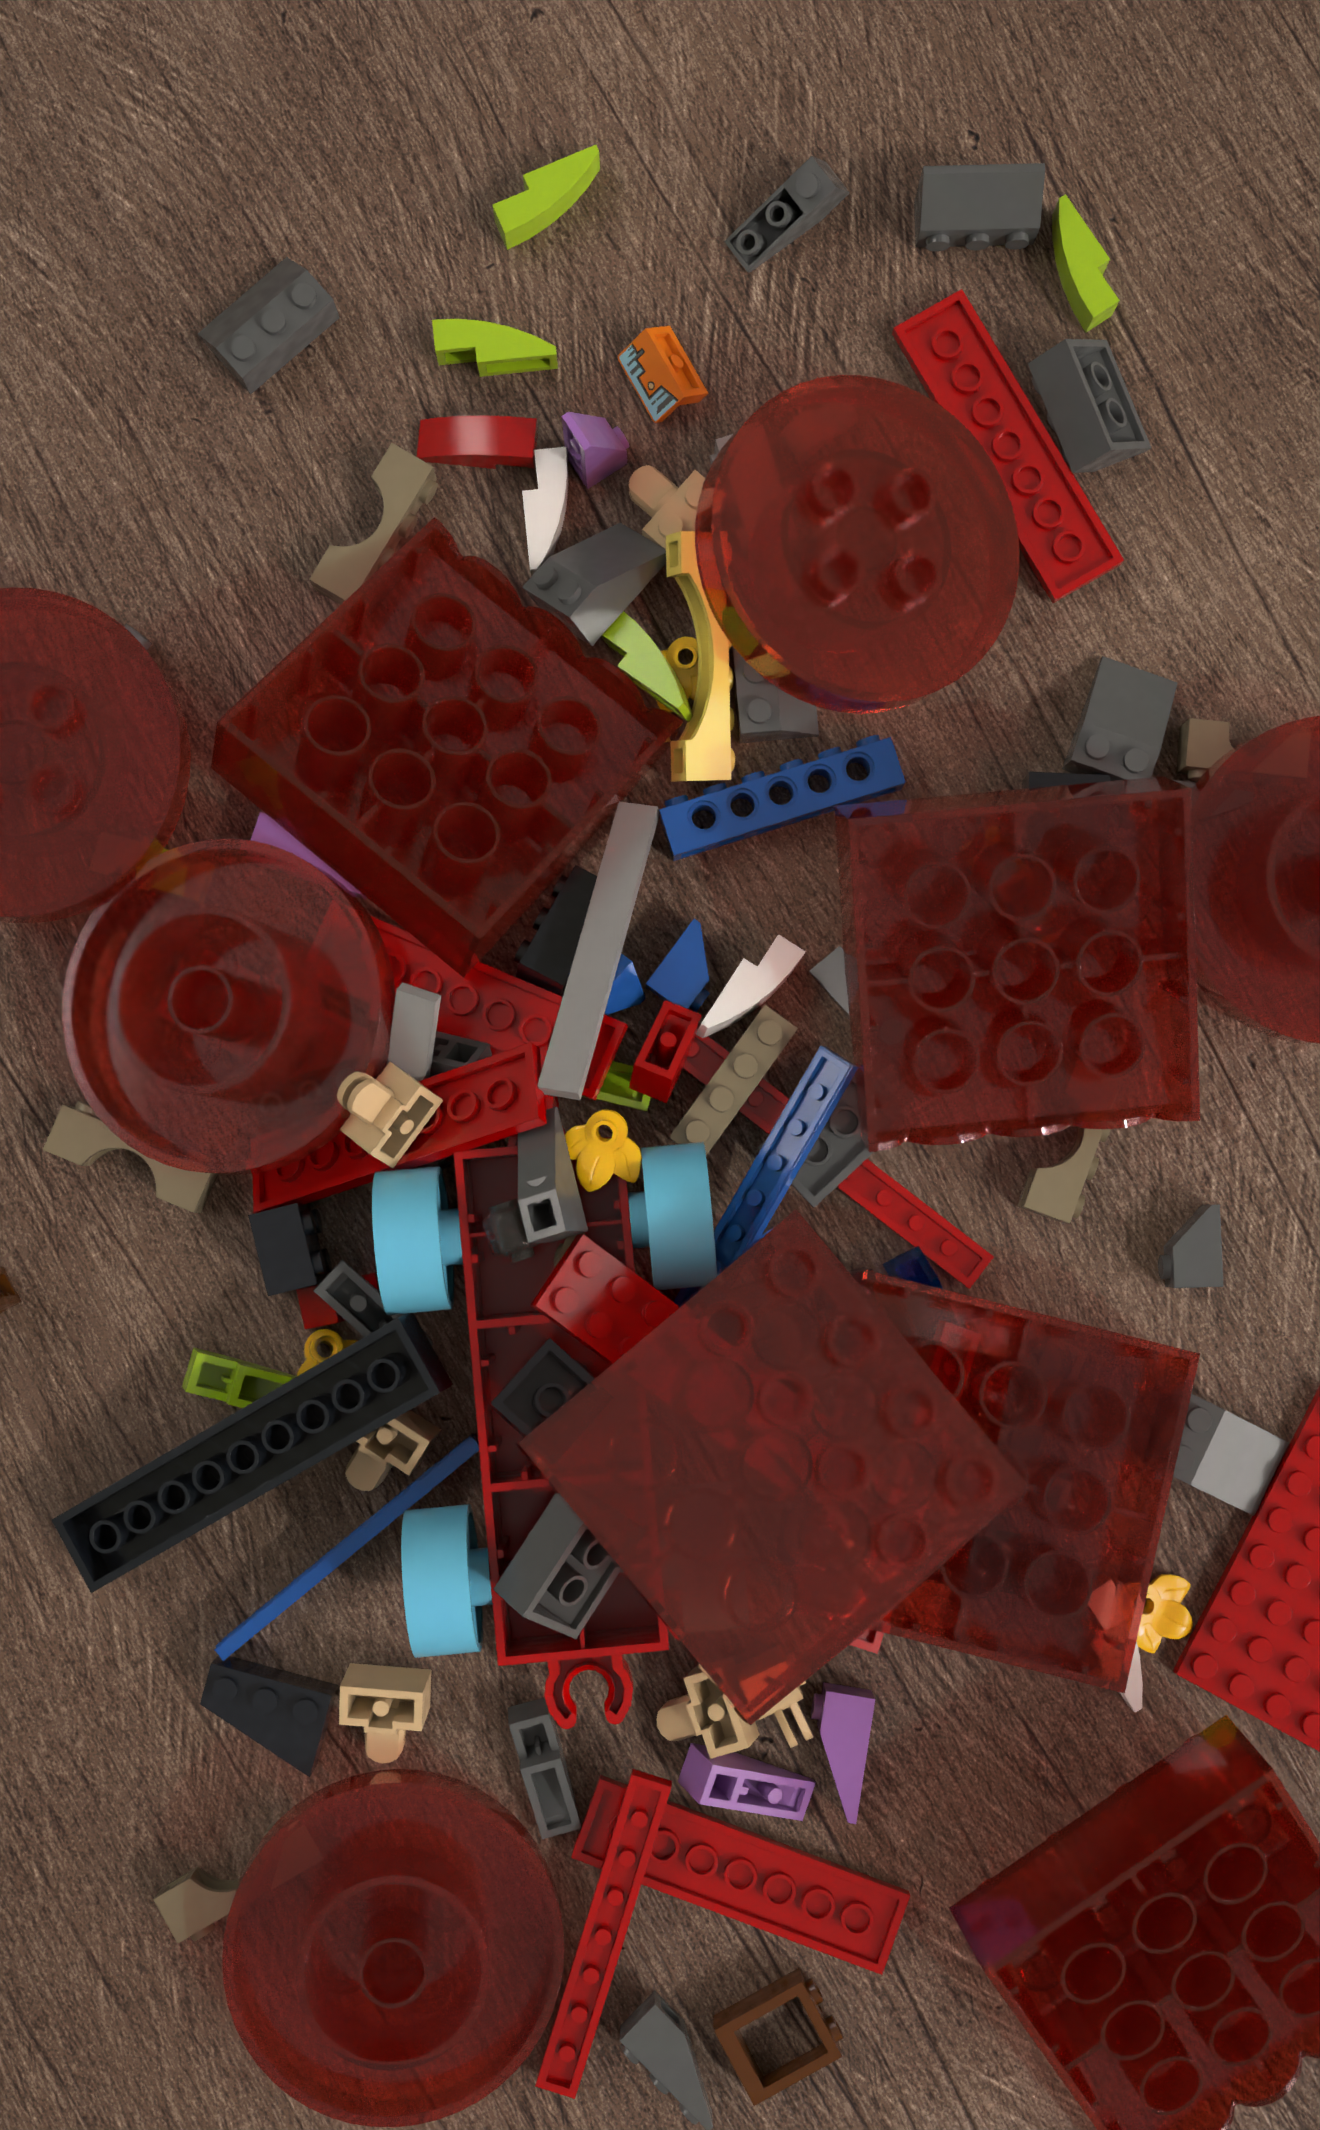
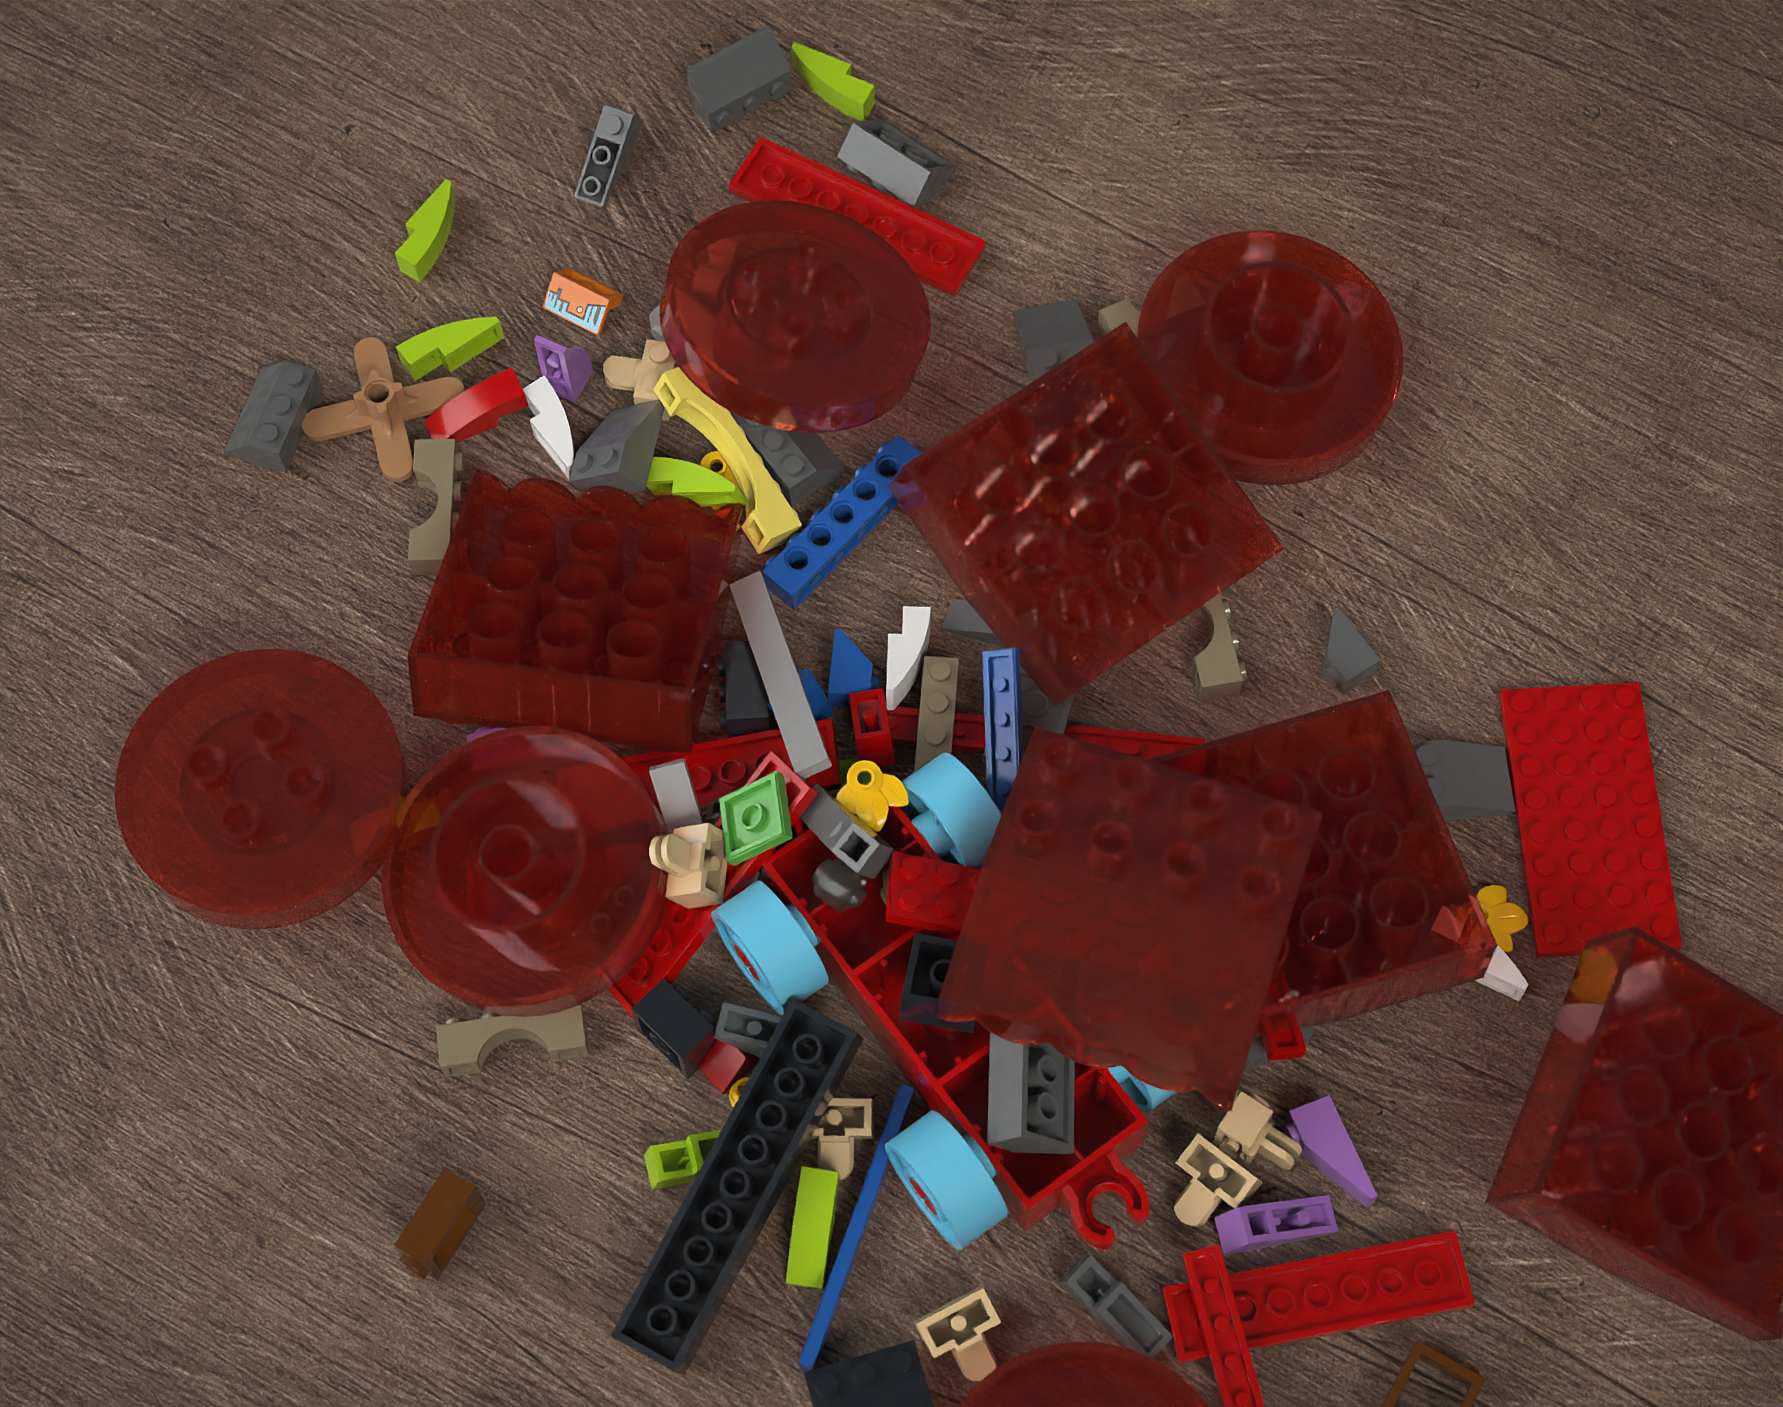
camera: 25 degrees left, 20 degrees down
(308, 1519) = (812, 1227): none -> lime slope
(382, 399) = (384, 417): none -> medium nougat piece
(472, 1107) = (755, 818): none -> bright green tile

